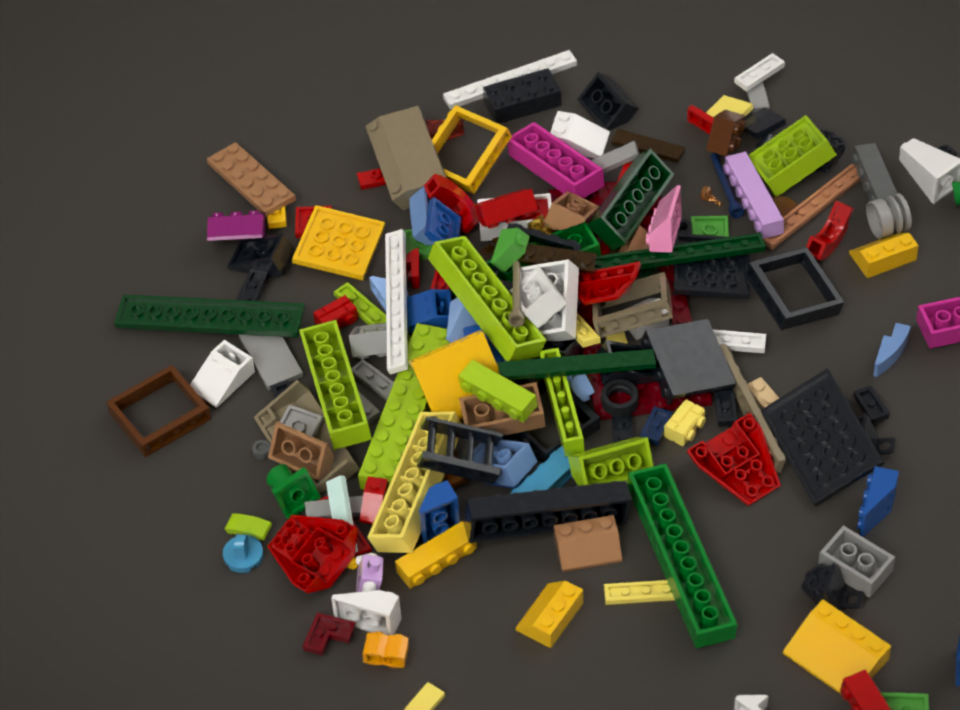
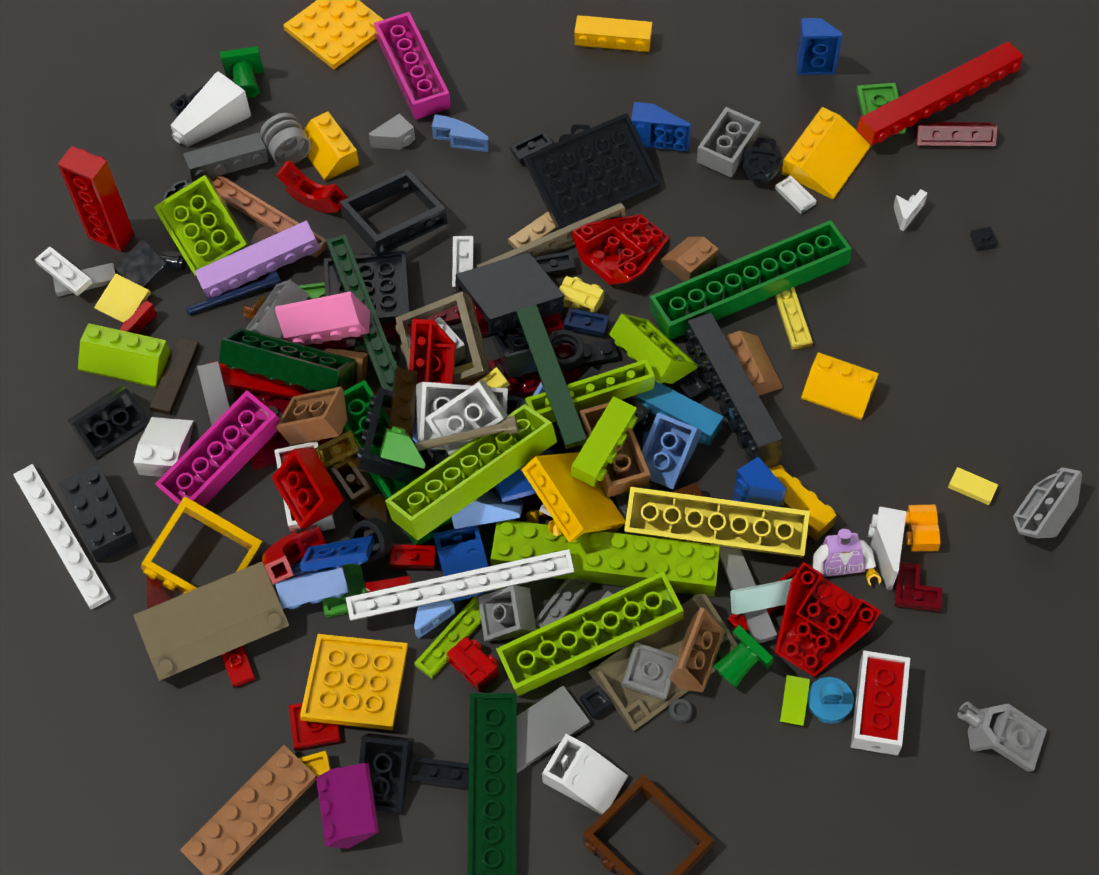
camera: 100 degrees left, 10 degrees up
(173, 666) = (1004, 731): none -> light grey plate
(225, 580) = (880, 703): none -> brick
(372, 498) = (745, 565): slope -> none
(454, 466) = (702, 462): black fence -> none
(671, 111) = (123, 355): none -> lime slope
(699, 207) = (265, 319): none -> light grey slope
(716, 514) = (691, 258): none -> medium nougat slope
(726, 132) = (171, 287): reddish brown brick -> none
(789, 618) = (795, 194): none -> white tile
(806, 69) = (96, 198): none -> red brick
(896, 300) = (392, 134): none -> light grey slope

